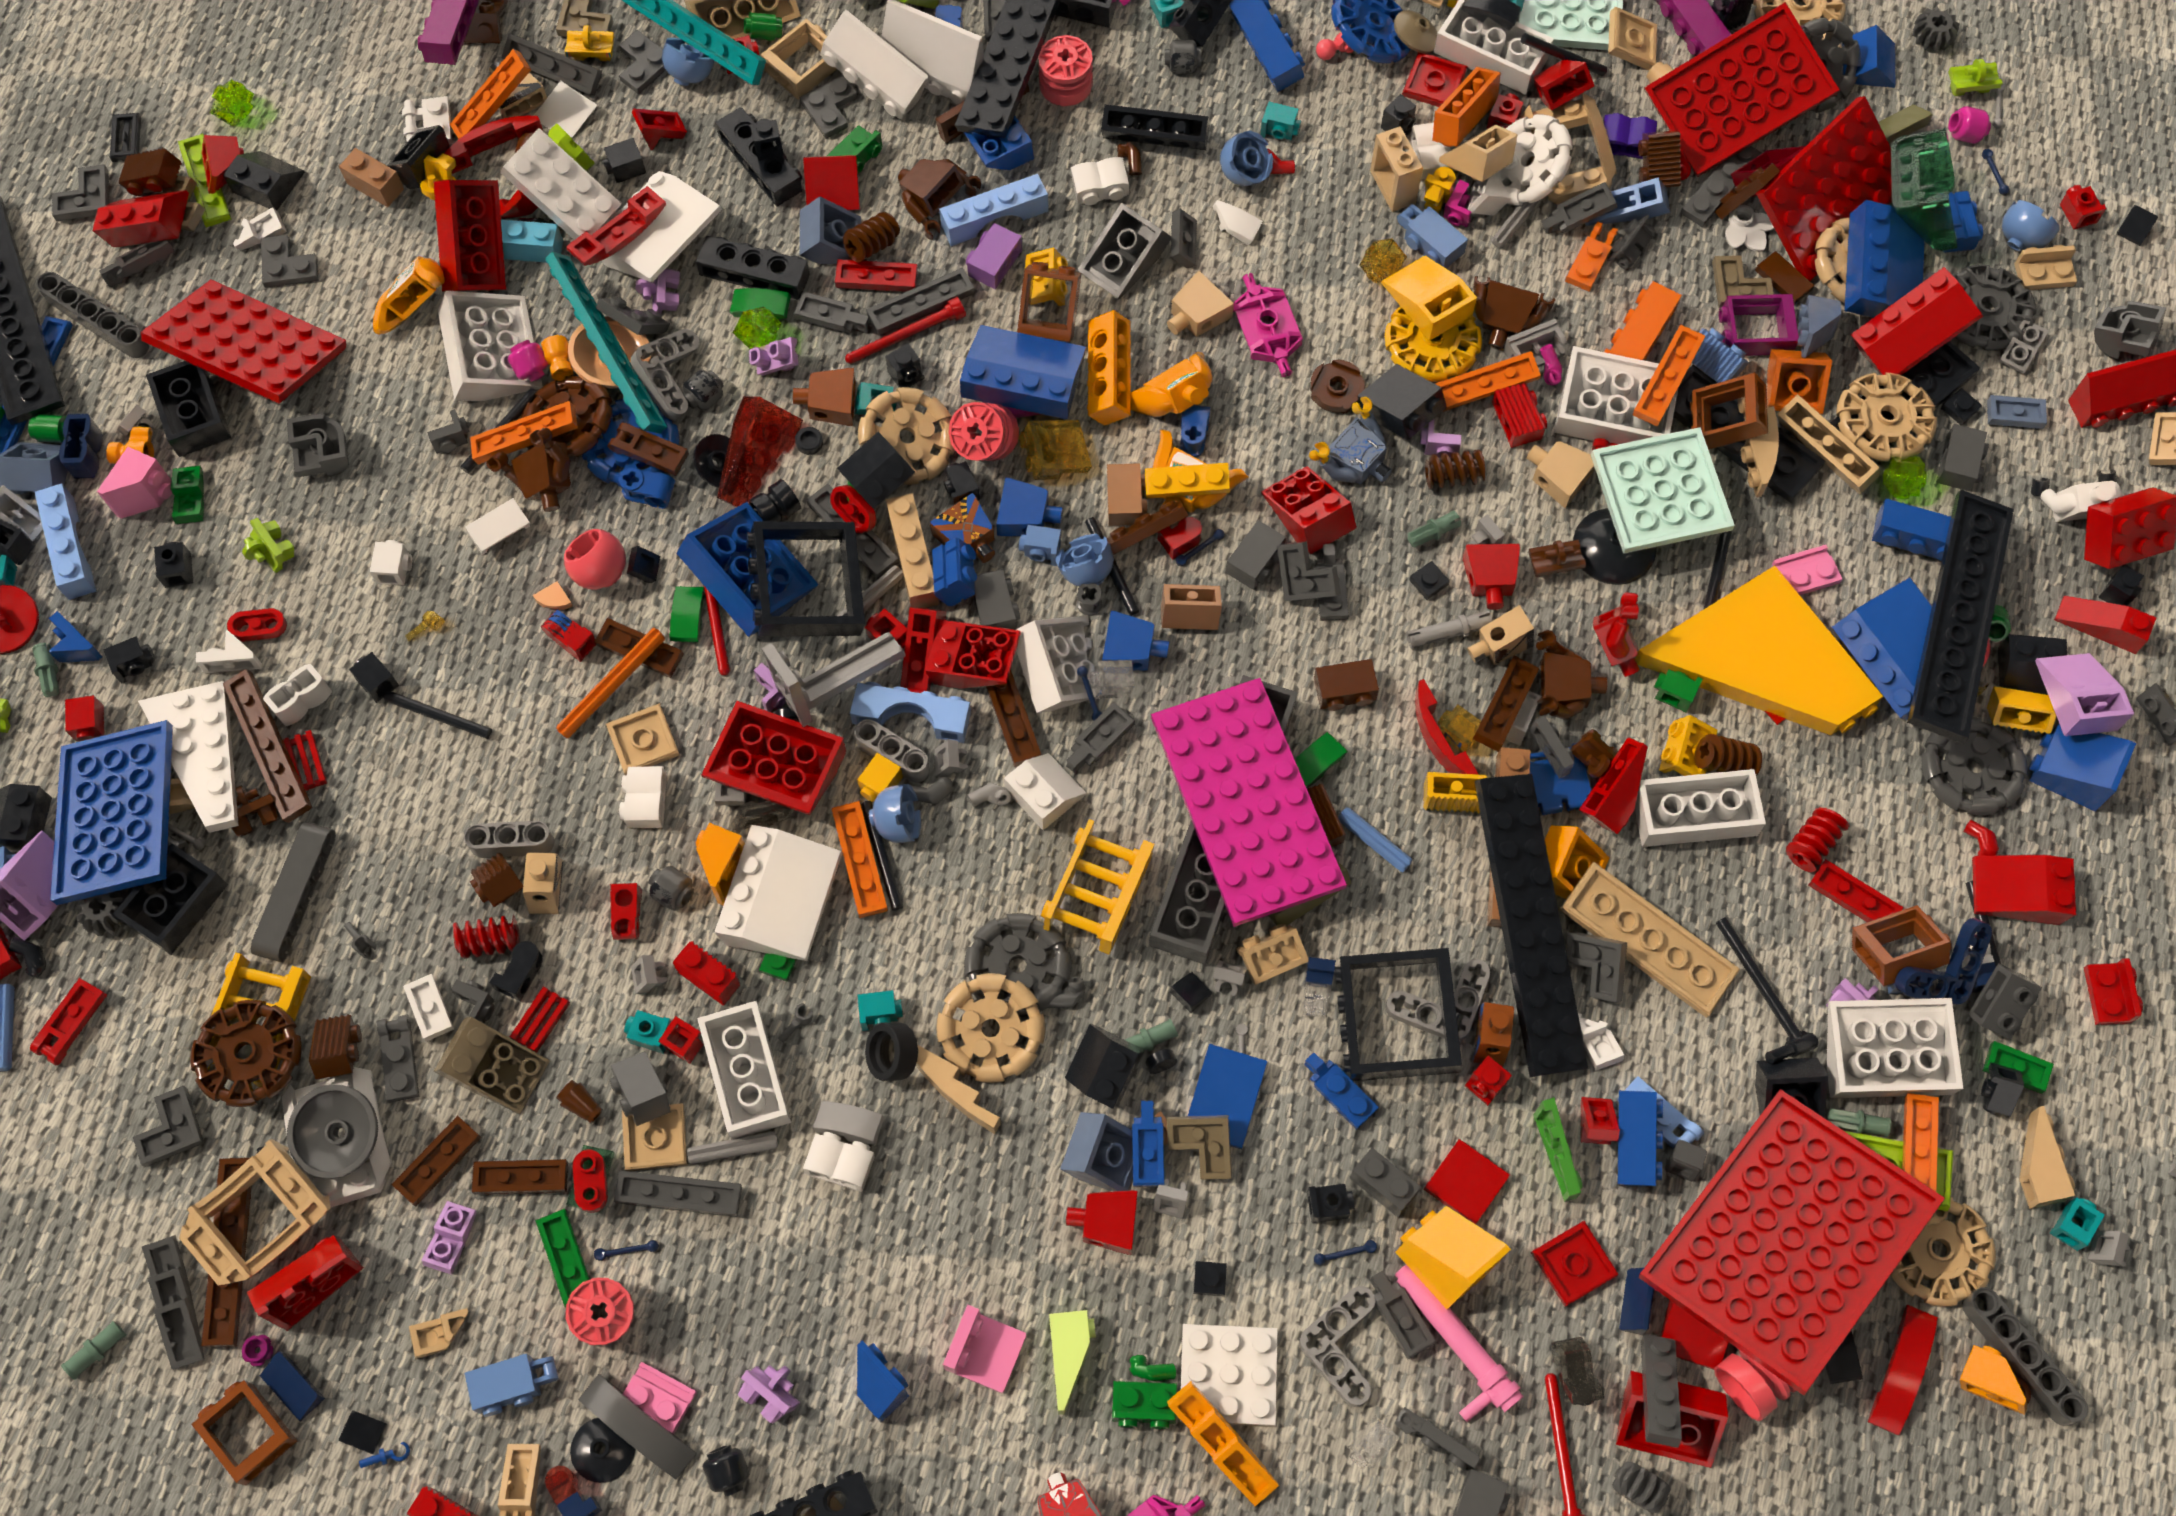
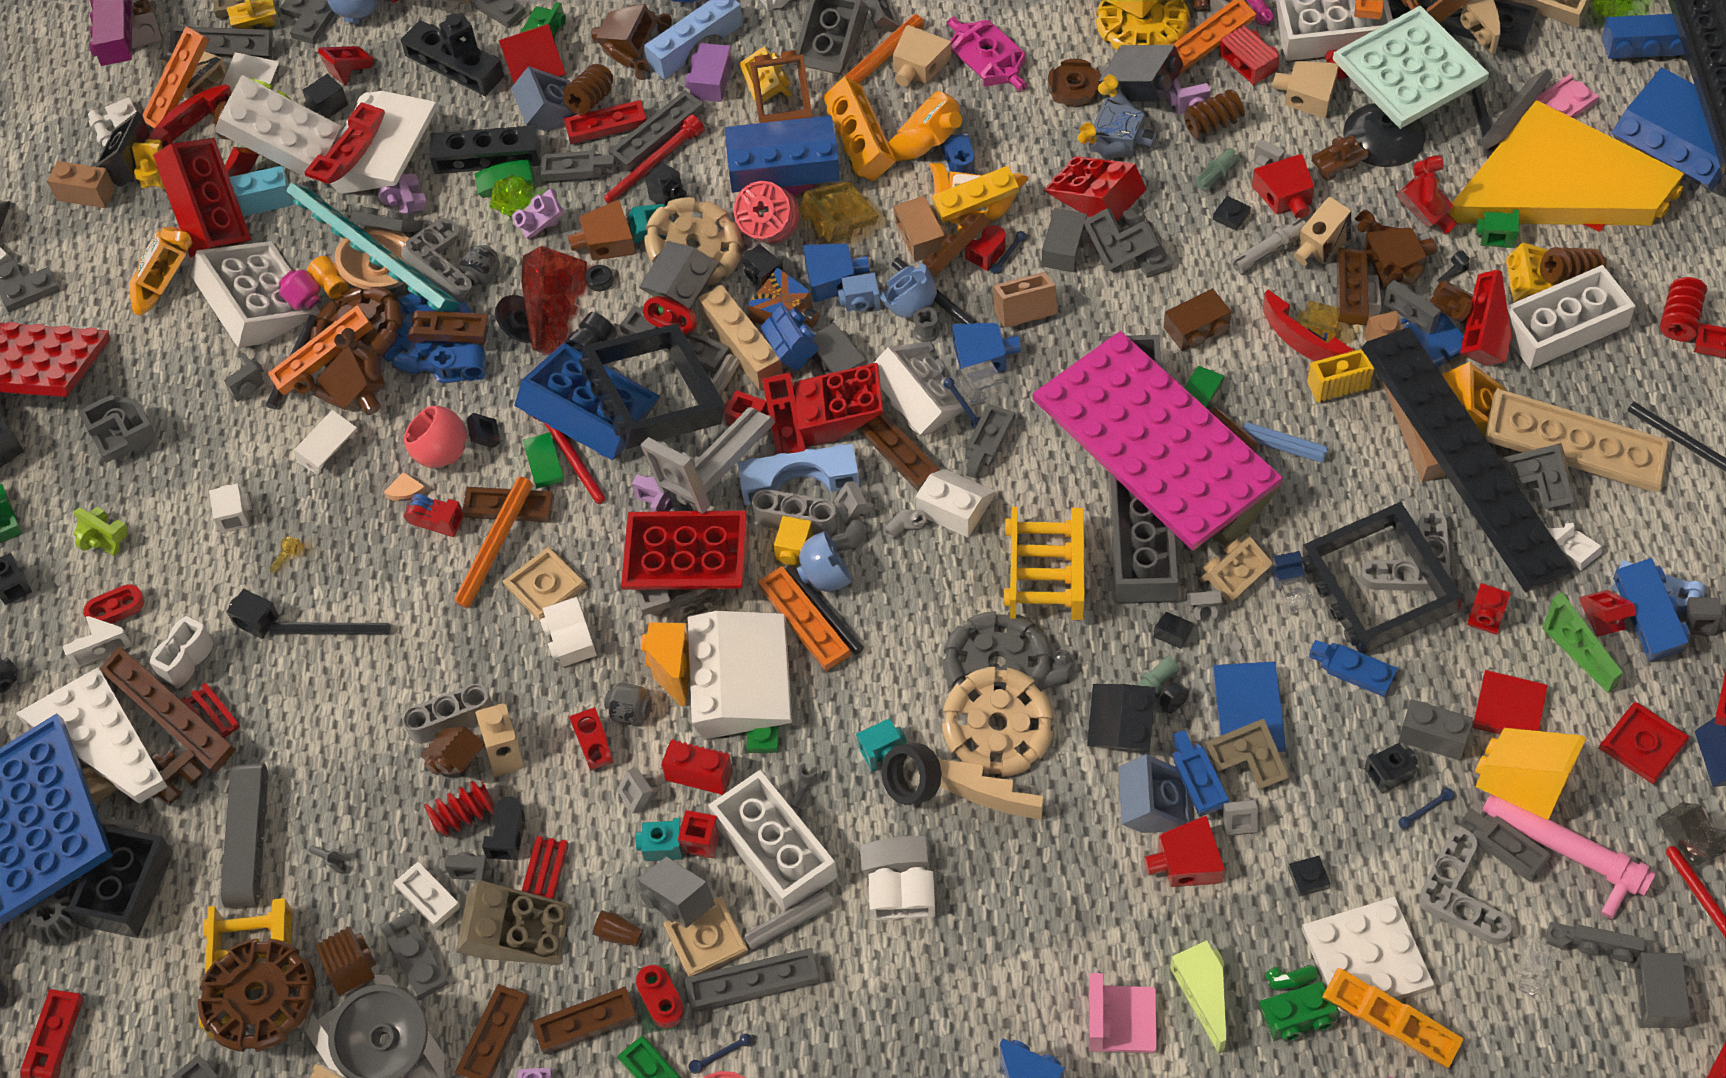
camera: 15 degrees left, 10 degrees down
(1164, 289) = (882, 52): none -> orange axle
(1493, 1031) = (1470, 557): dark orange torso -> none
(1625, 713) = (1461, 263): none -> black hand
(1753, 566) = (1516, 109): none -> dark grey tile

